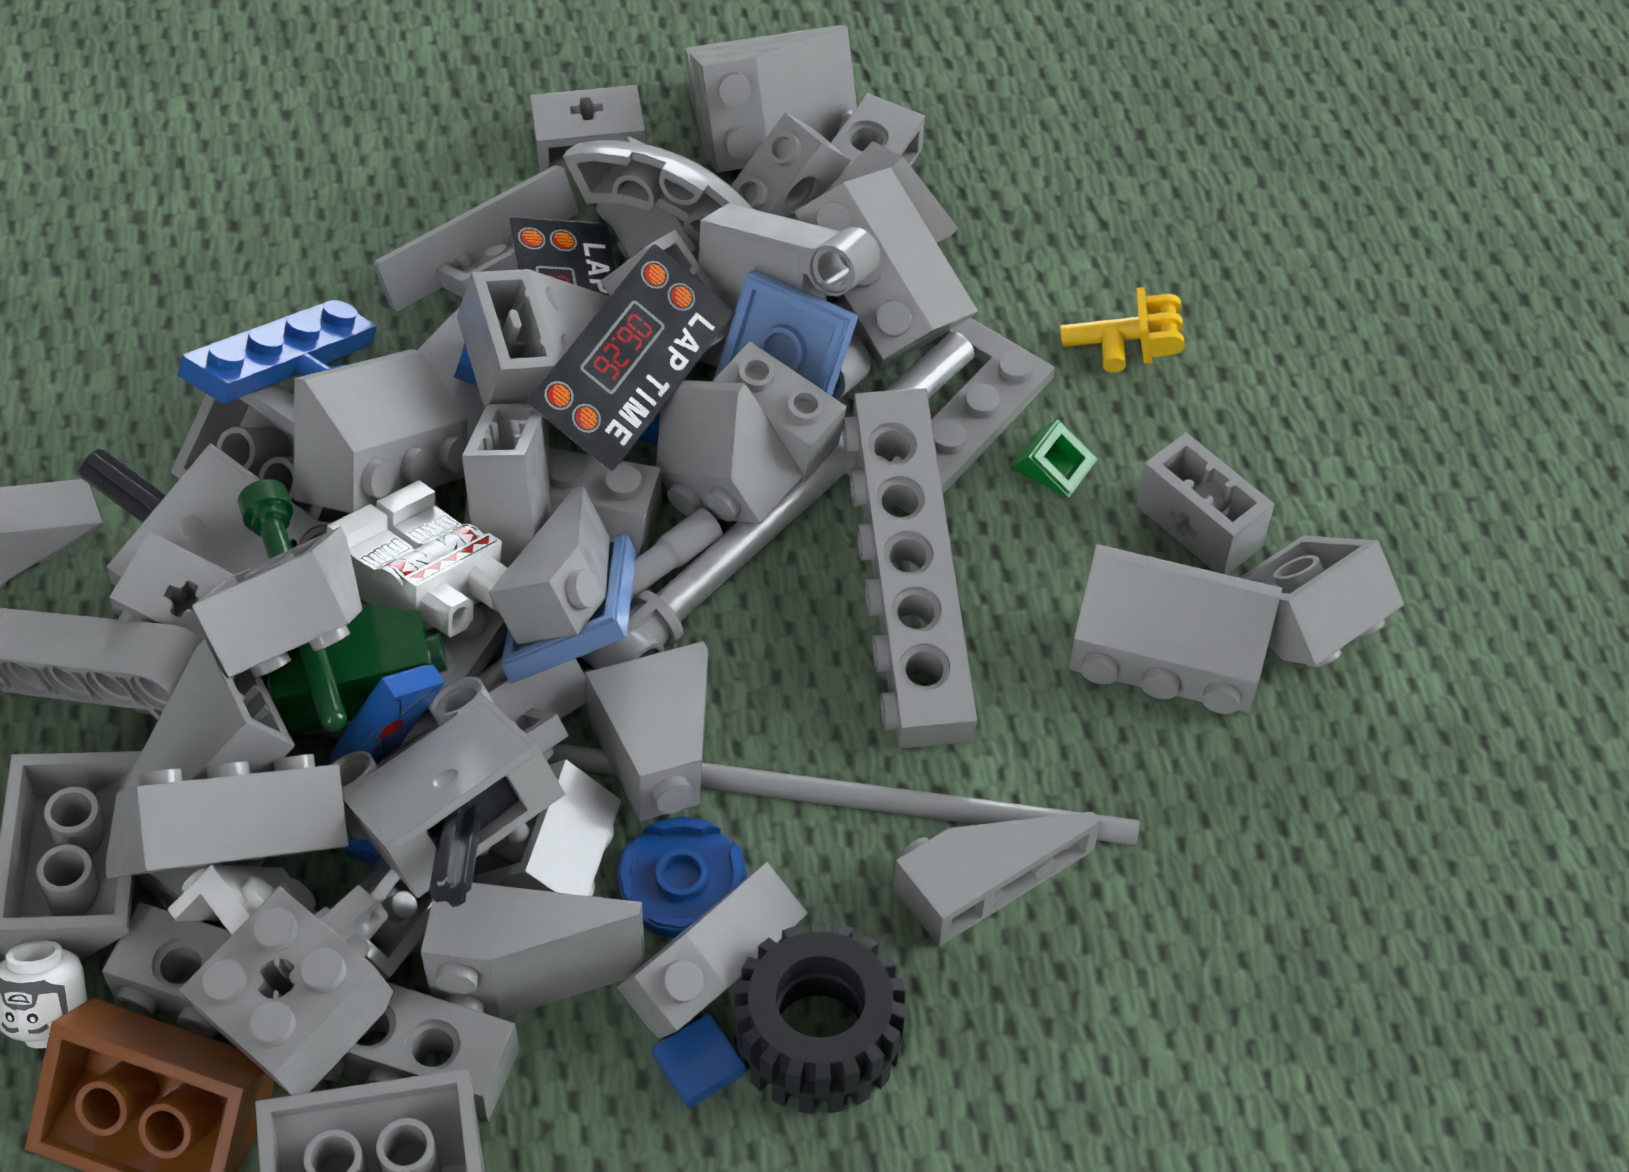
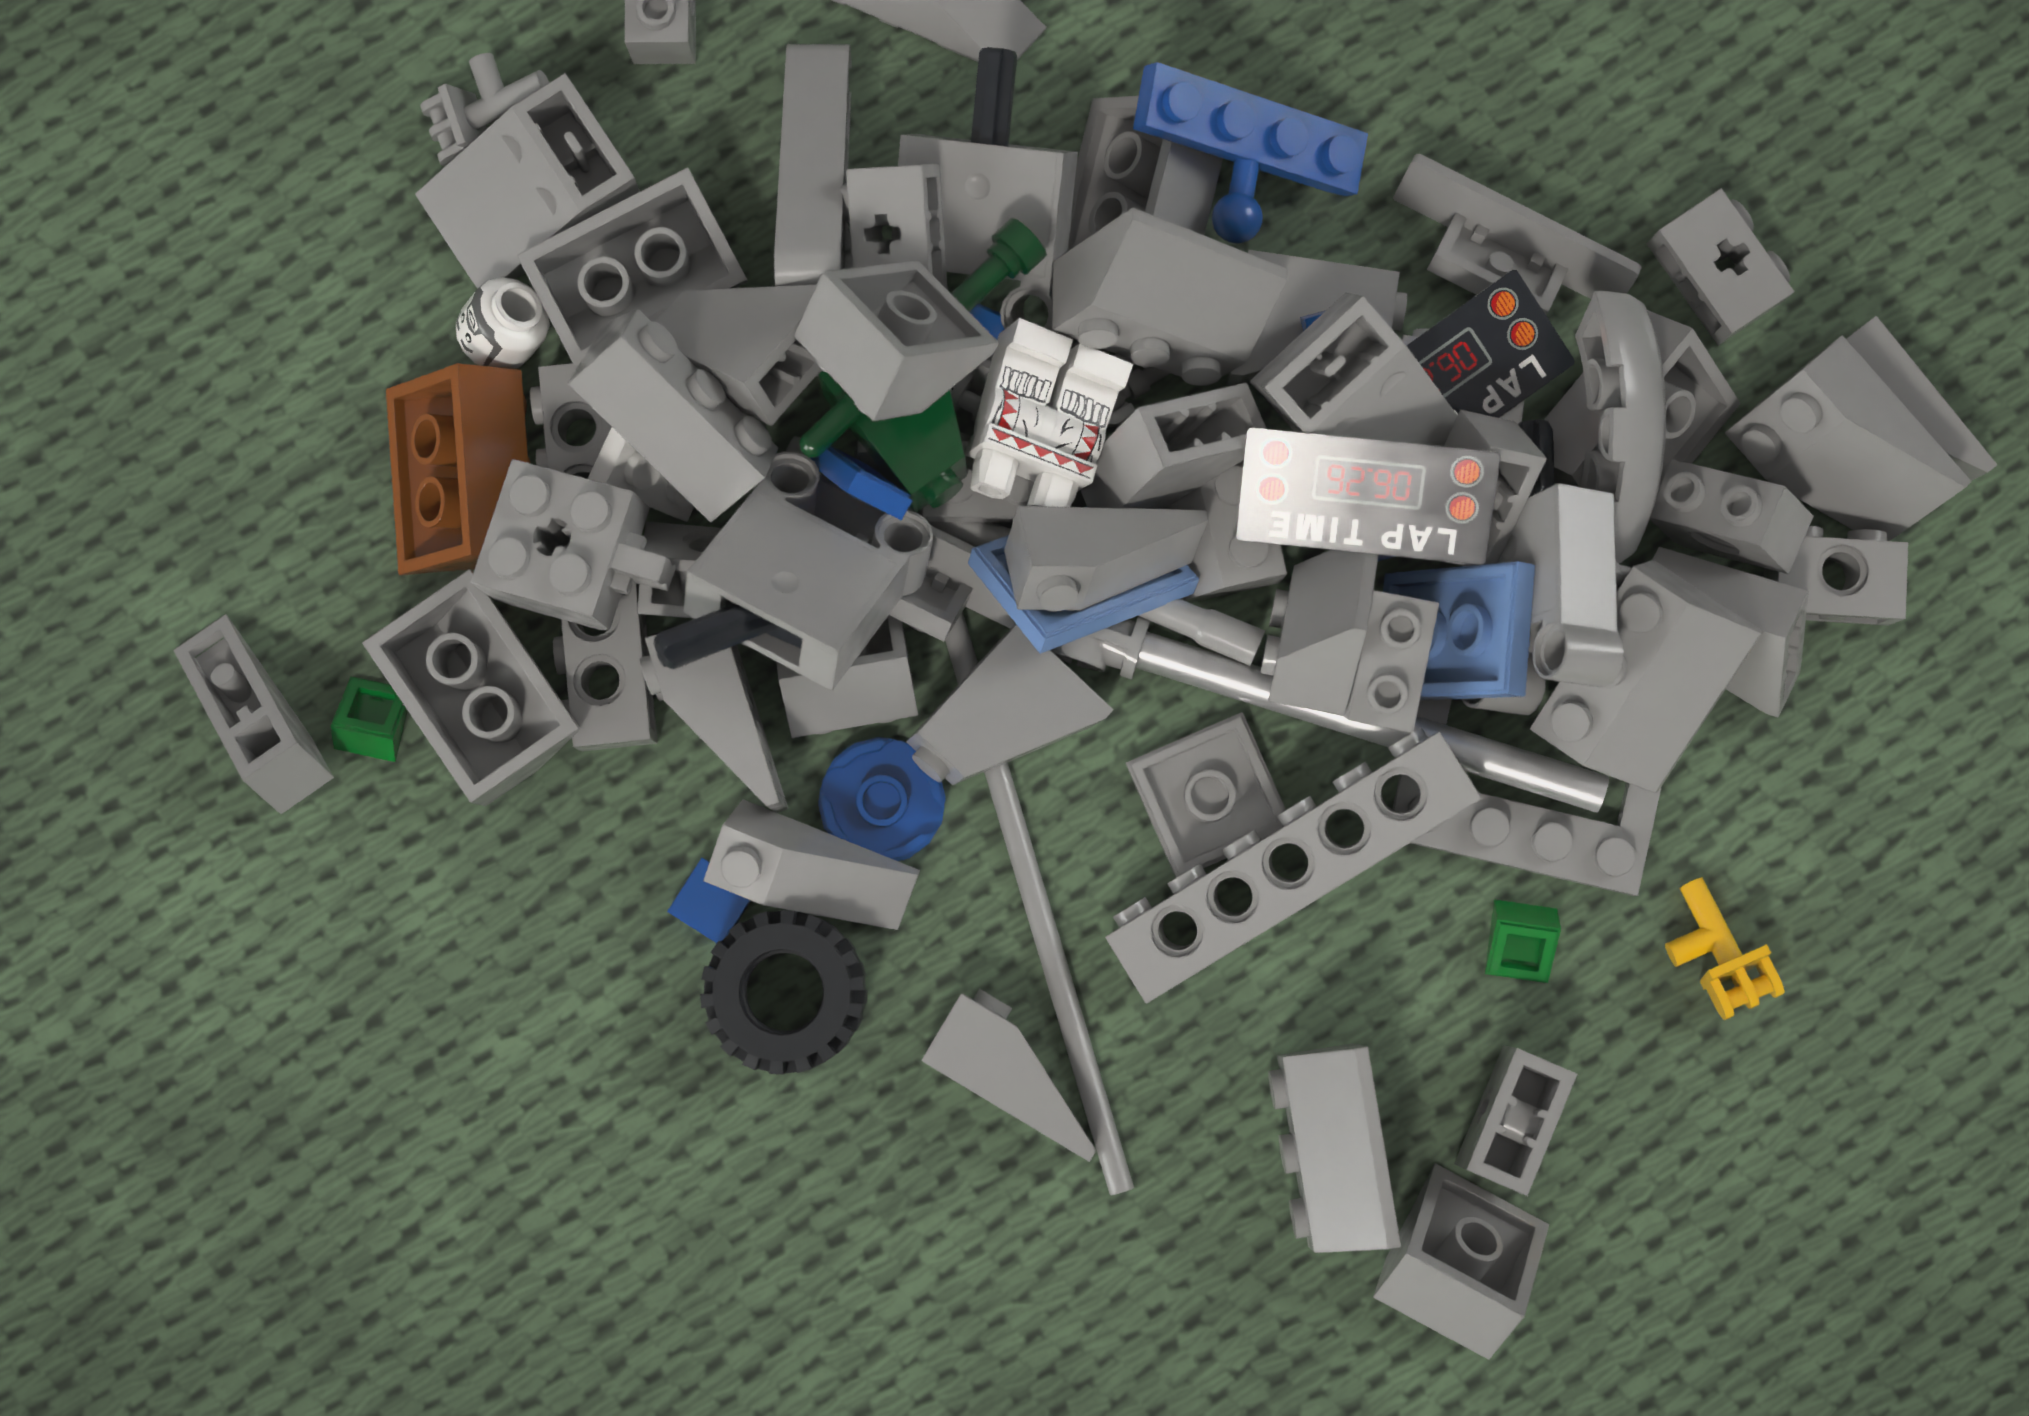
camera: 65 degrees right, 30 degrees up
(813, 626) = (1207, 793): none -> light grey tile

